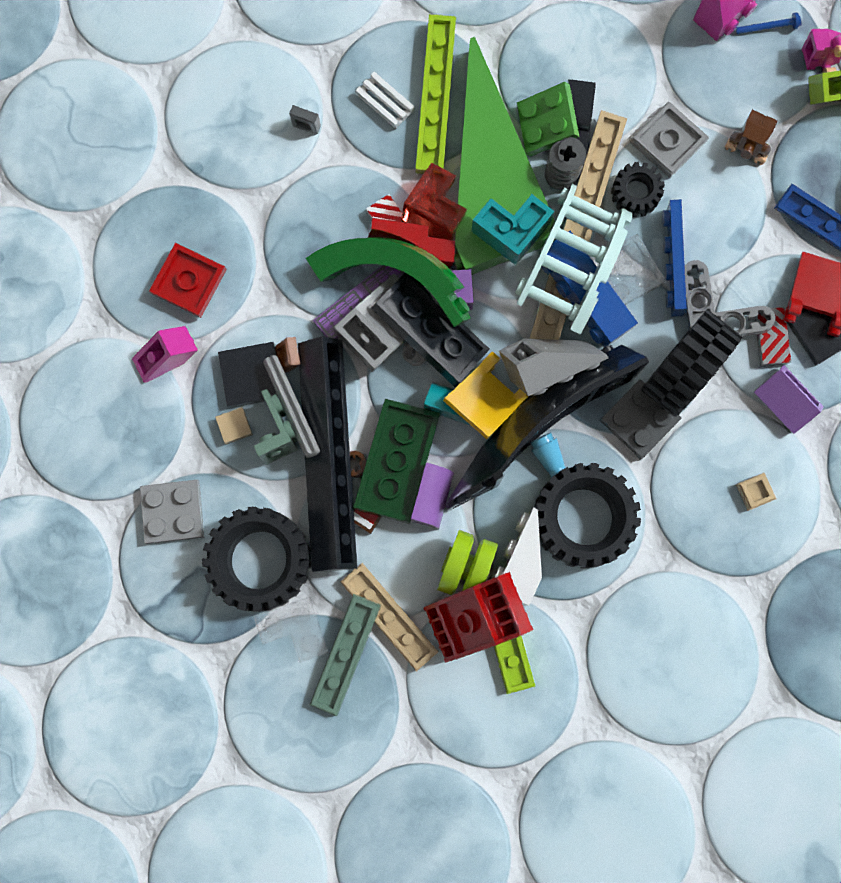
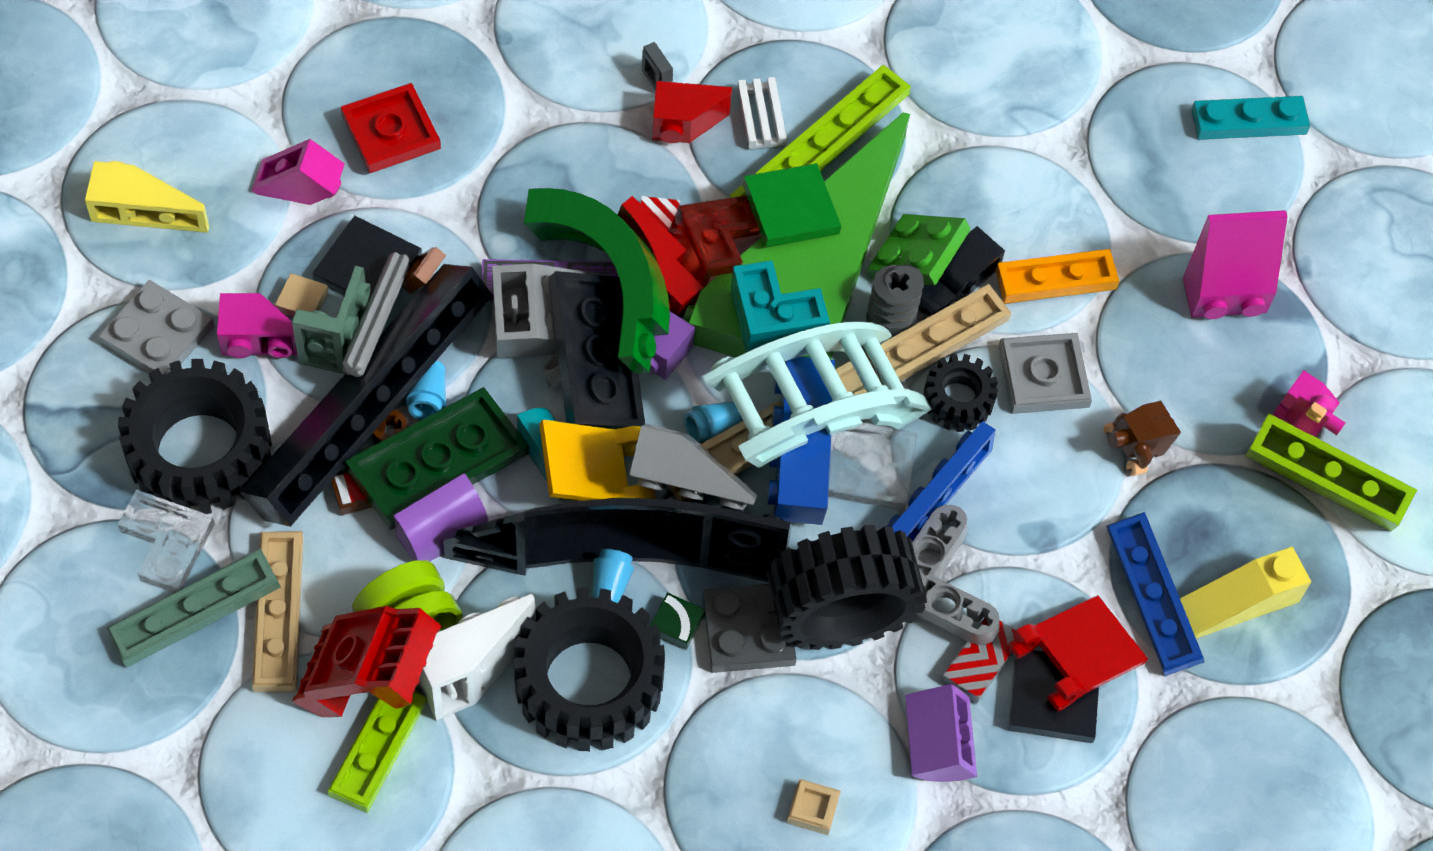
camera: 30 degrees right, 20 degrees down
(82, 444) = (135, 198): none -> light yellow slope
(225, 466) = (253, 327): none -> dark pink slope
(344, 134) = (688, 110): none -> red slope
(359, 427) = (428, 393): none -> medium azure cone
(461, 150) = (791, 205): none -> green tile
(522, 317) = (710, 420): none -> medium azure cone
(601, 446) = (678, 620): none -> dark green tile
(630, 74) = (1057, 276): none -> light orange plate
(795, 21) = (1299, 358): blue piece -> none

